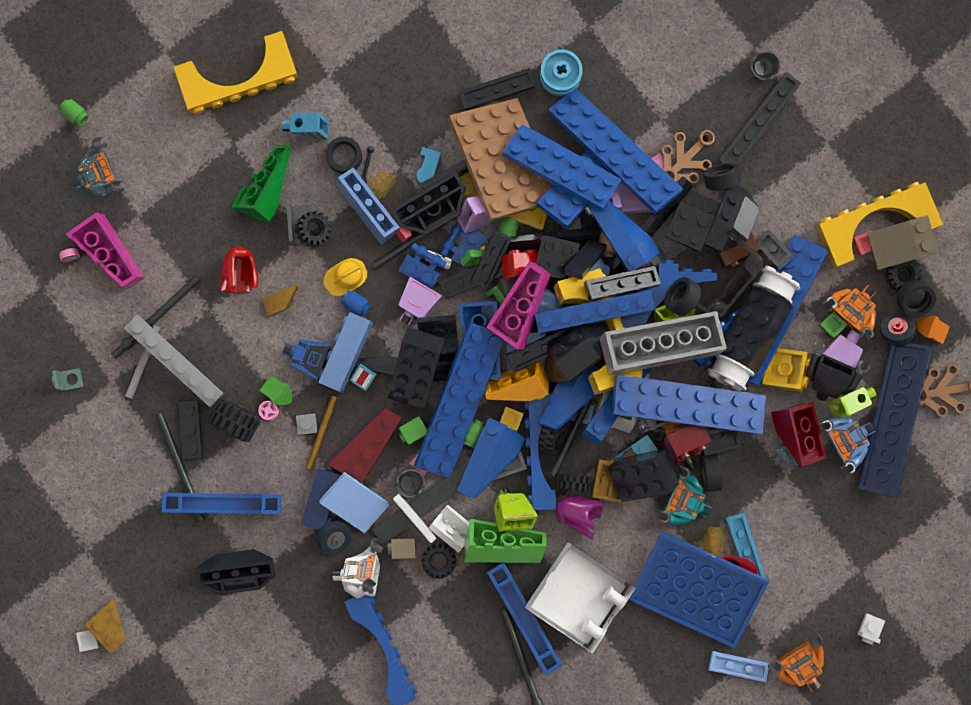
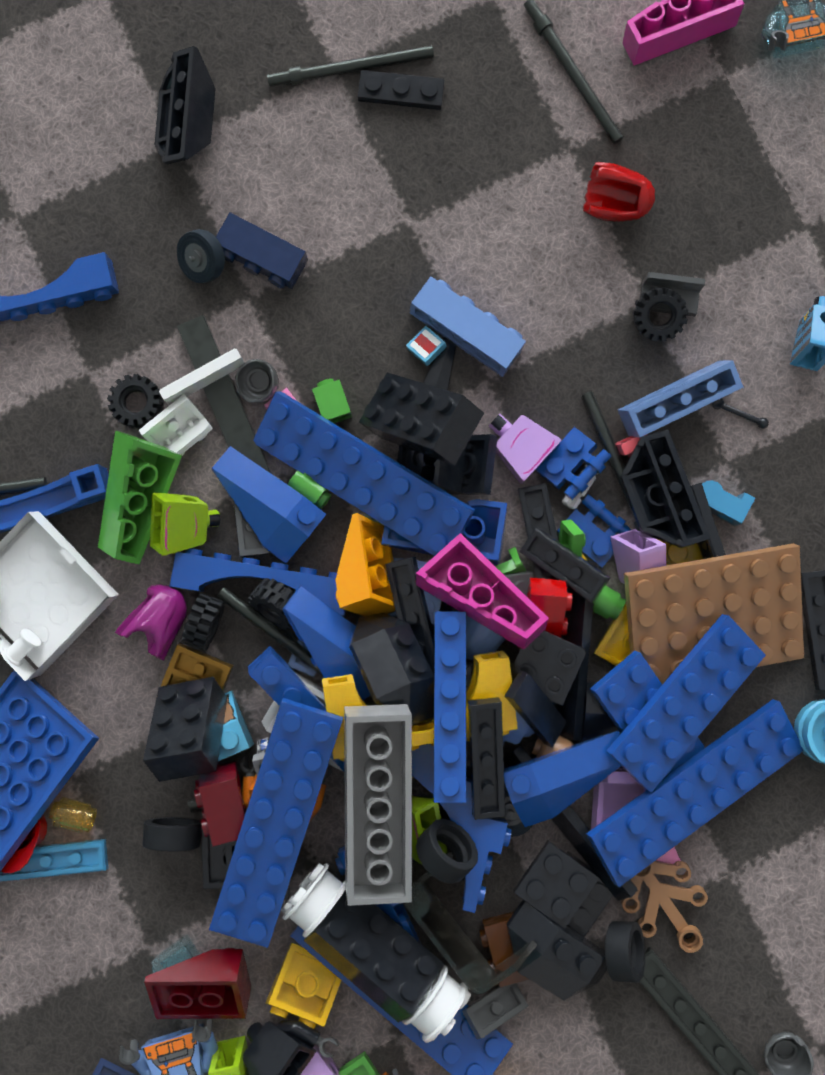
camera: 105 degrees right, 0 degrees up
(139, 369) = (512, 42): light grey bar -> none
(173, 361) = (532, 55): light grey arch -> none
(221, 503) = (291, 73): blue arch -> none
(233, 420) = (400, 143): black tyre -> none
(263, 194) = (722, 252): green wedge -> none
(268, 408) = (403, 196): bright pink wheel -> none
(278, 392) = (429, 218): bright green tile -> none
(279, 301) = (562, 248): pearl gold slope -> none
(306, 424) = (374, 253): light grey plate -> none
(308, 356) = (472, 270): torso -> none
(321, 432) = (358, 272): pearl gold bar -> none
(342, 141) = (783, 374): black tyre -> none
(345, 276) = (579, 350): yellow piece -> none
(354, 502) = (244, 293): light blue tile -> none
(355, 303) = (537, 355): blue brick -> none
(361, 571) = (140, 284): torso -> none
(365, 449) = (316, 323): dark red wedge -> none
(382, 184) = (707, 428): clear yellow brick -> none
(402, 548) = (165, 352): dark tan brick -> none
(511, 418) = (319, 548): yellow plate -> none
(685, 501) = (136, 785): torso -> none

